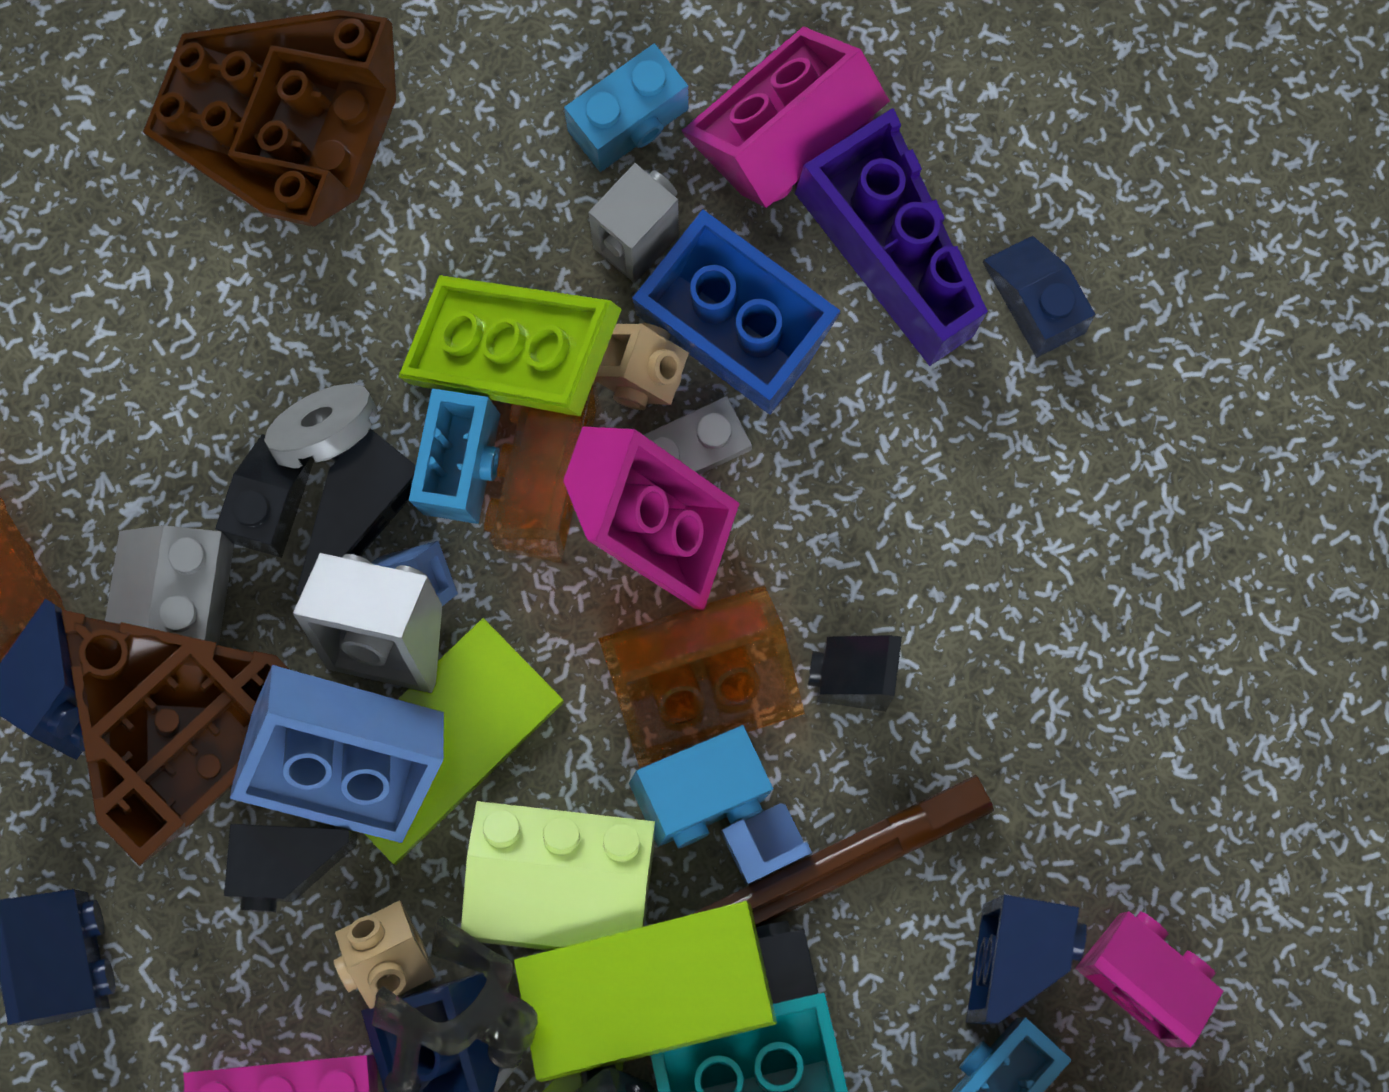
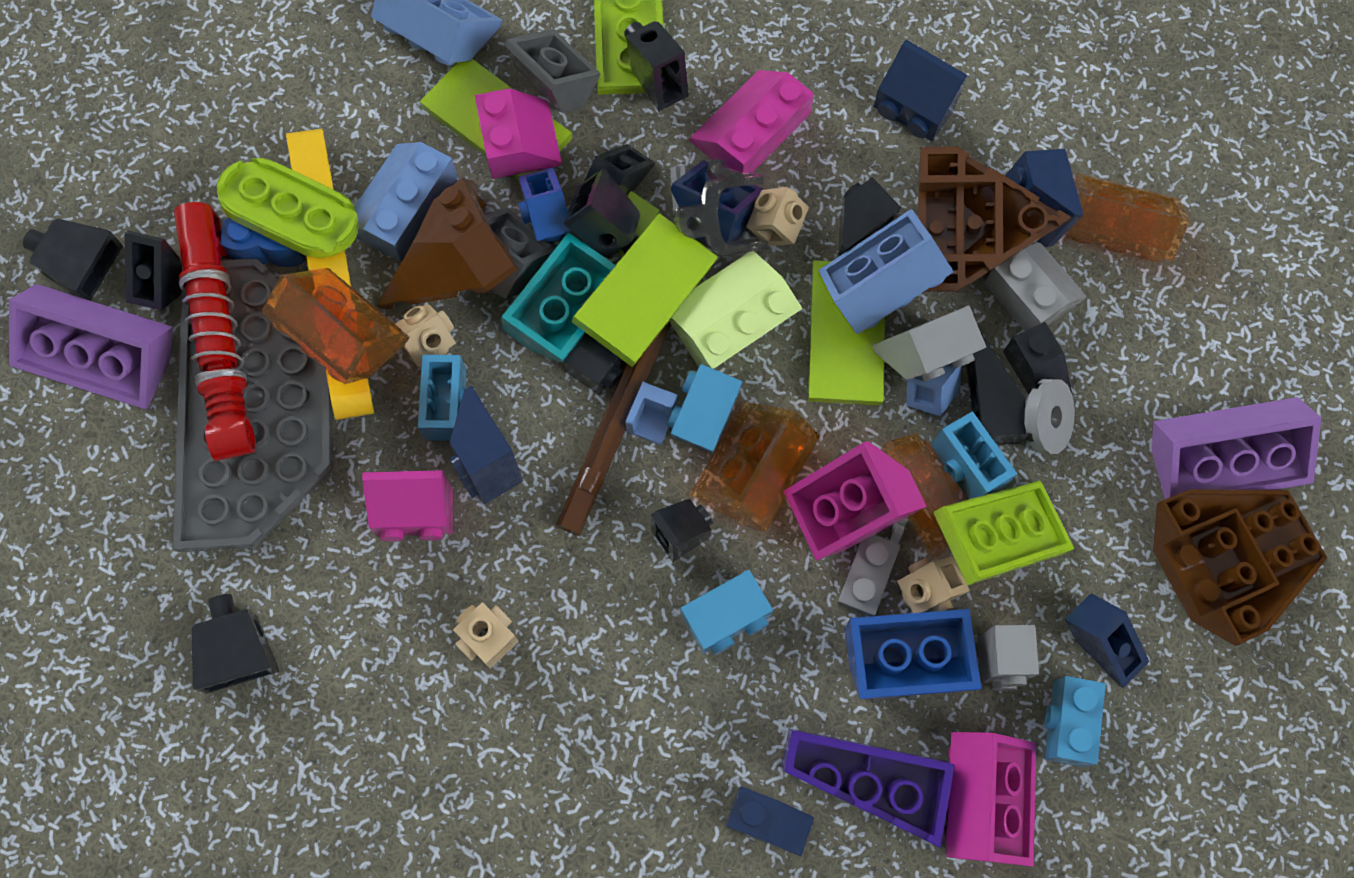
camera: 135 degrees right, 5 degrees down
(154, 216) = (1238, 448): none -> medium lavender slope
(505, 157) = (1108, 638): none -> dark blue slope
(892, 534) = (727, 613): none -> dark azure brick
(1194, 731) = (491, 646): none -> tan brick

